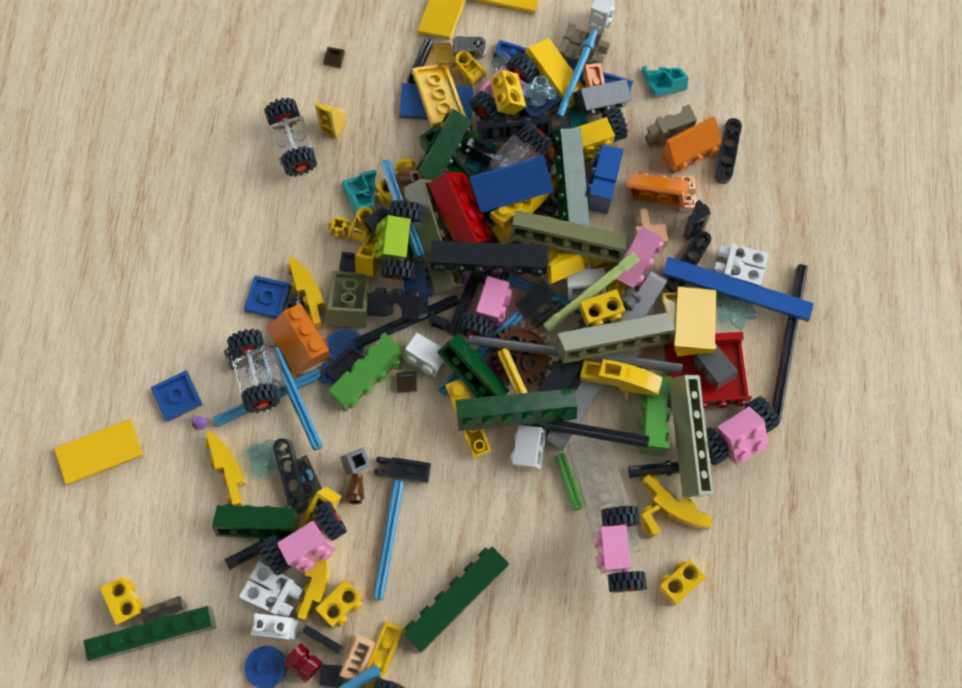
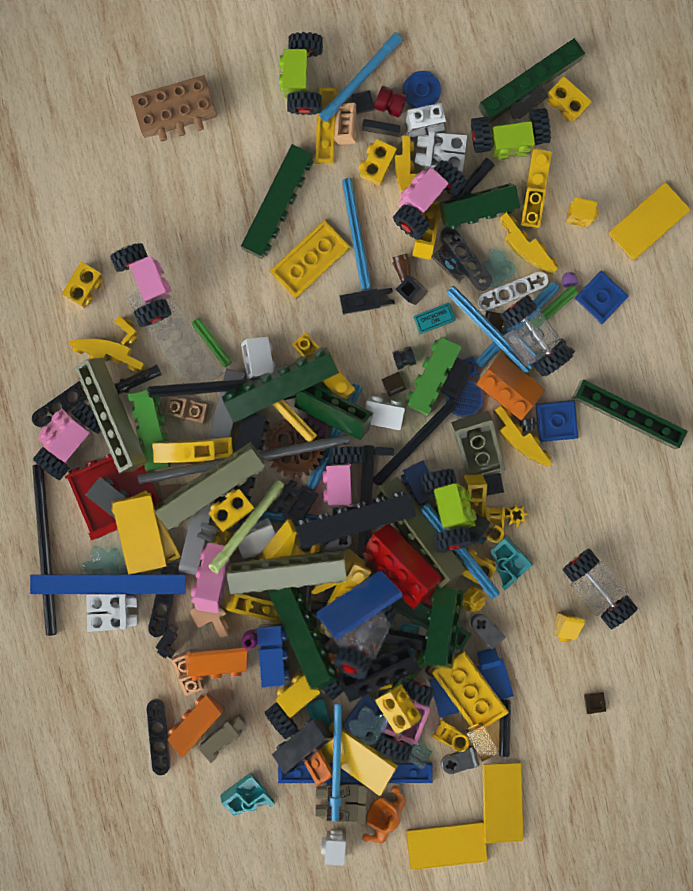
camera: 165 degrees right, 15 degrees up
(159, 478) = (582, 212): none -> yellow brick
(194, 522) = (535, 188): none -> yellow slope
(196, 576) = (512, 138): none -> brick
(198, 277) = (629, 414): none -> dark green brick
(219, 404) = (559, 302): none -> bright green axle
(258, 430) = (513, 293): none -> white beam
(286, 408) = (495, 319): none -> dark brown tile
(343, 430) = (434, 318): none -> teal tile
(387, 401) = (404, 358): none -> black wheel
(404, 141) = (489, 633): none -> flat silver piece
(407, 176) = (466, 584): reddish brown cone -> none
(412, 118) = (488, 658): none -> blue tile
(412, 303) = (442, 451): black arch -> none
(443, 530) = (310, 259): none -> yellow tile
(550, 25) = (384, 816): none -> orange piece
(608, 420) = (186, 409): none -> light nougat slope
(609, 223) = (250, 606): none -> yellow slope
(620, 197) = (250, 634): none -> magenta pin
(733, 476) = (63, 400): none -> black beam

